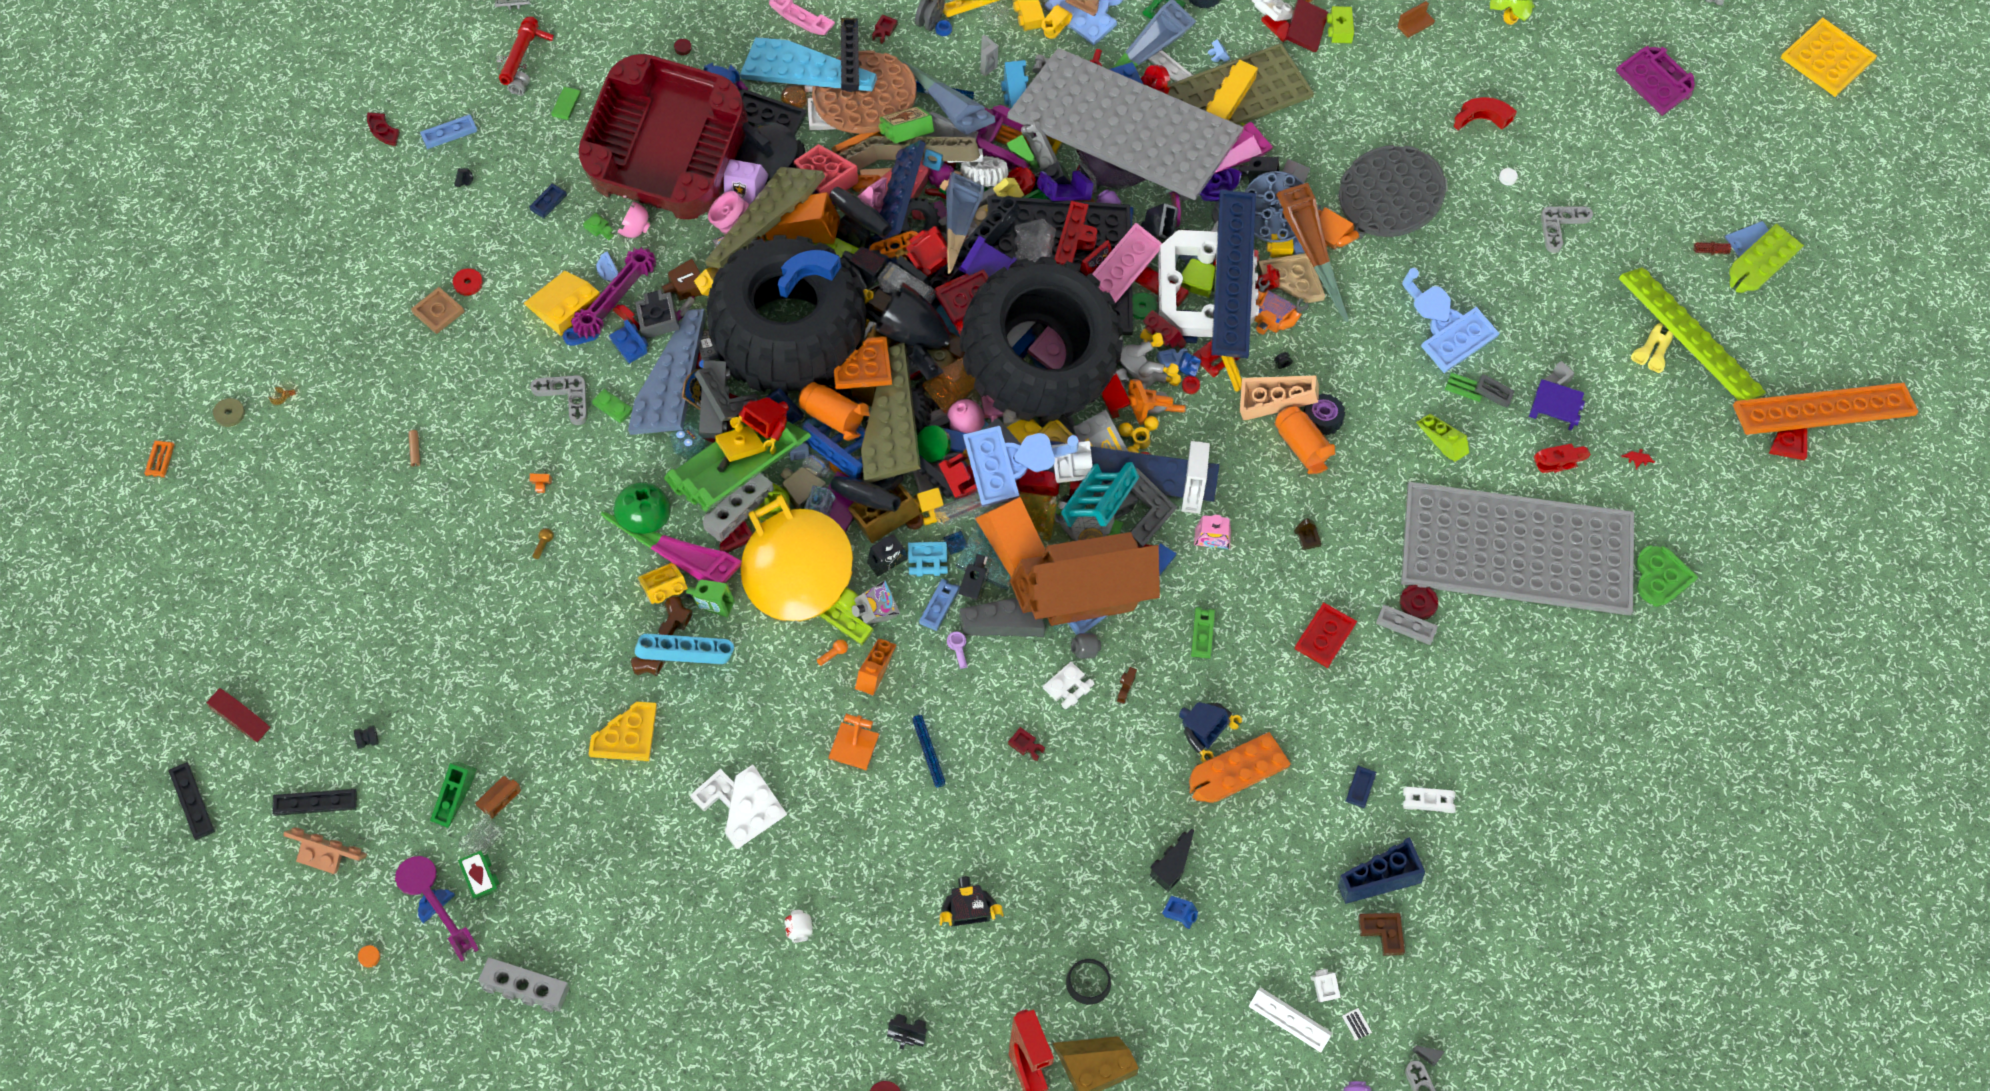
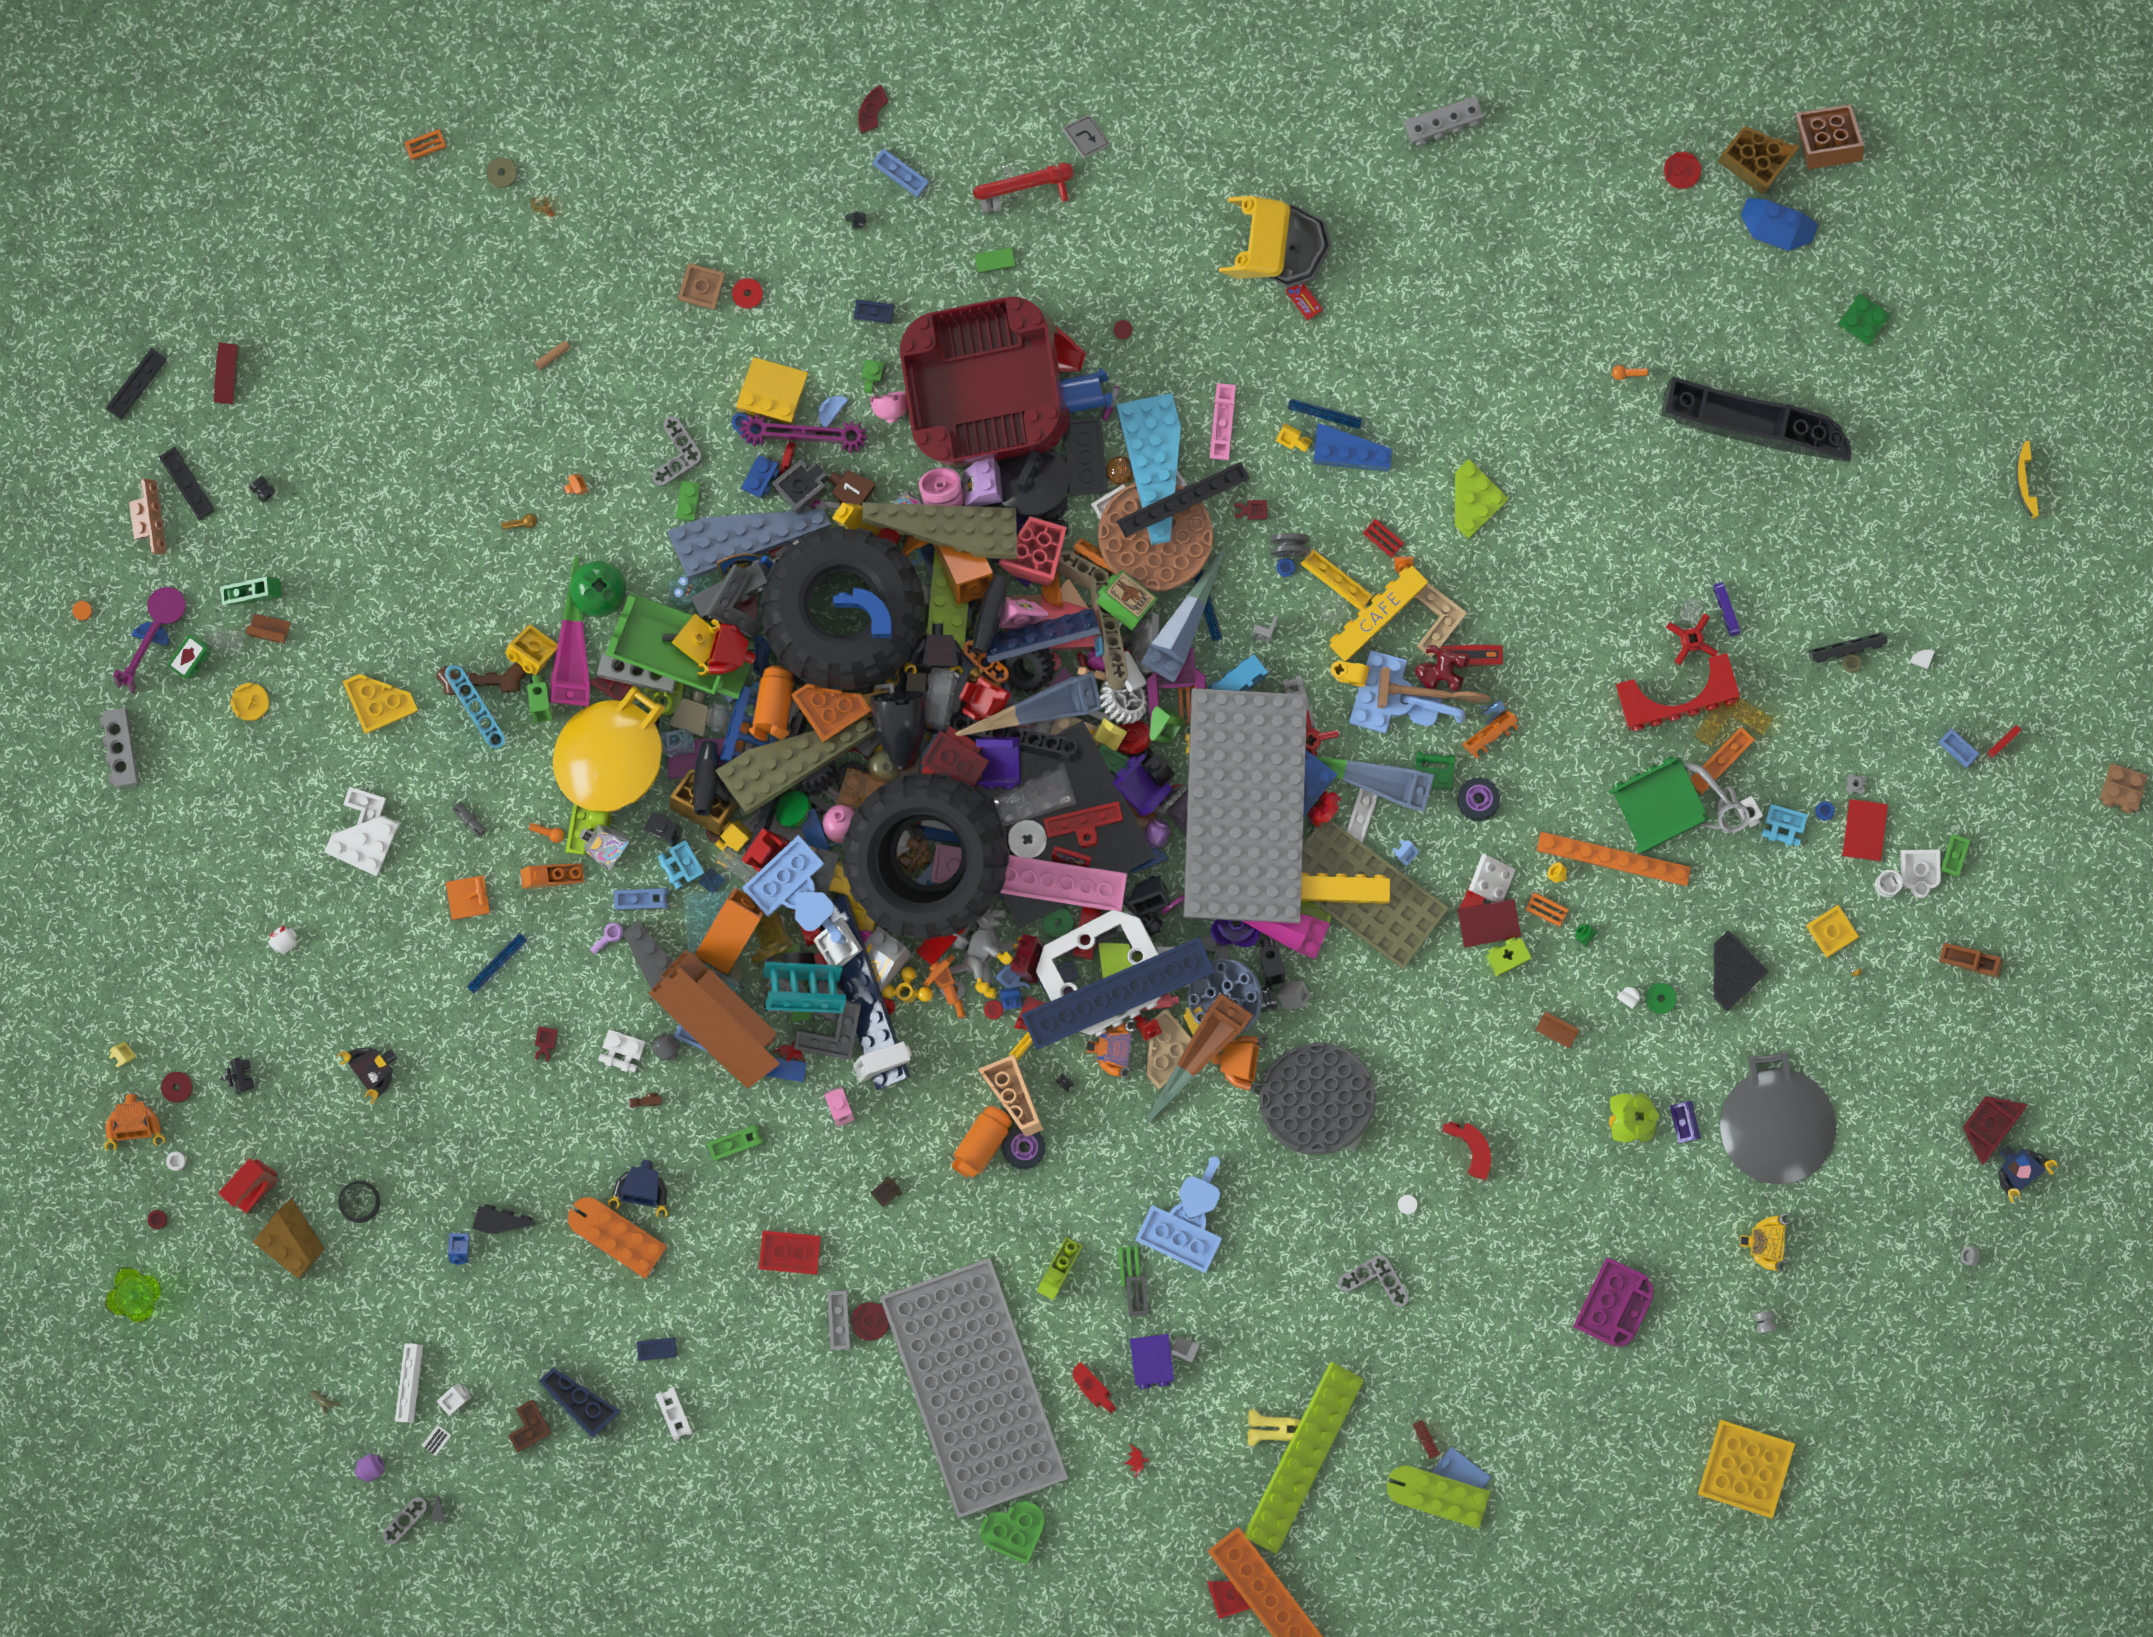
camera: 65 degrees right, 20 degrees up
(554, 847) = (250, 701): none -> yellow tile
(783, 709) = (469, 819): none -> dark grey pin
(925, 362) = (866, 760): black hinge -> none
(970, 585) = (677, 918): black torso -> none
(1039, 145) = (1179, 737): light grey plate -> none

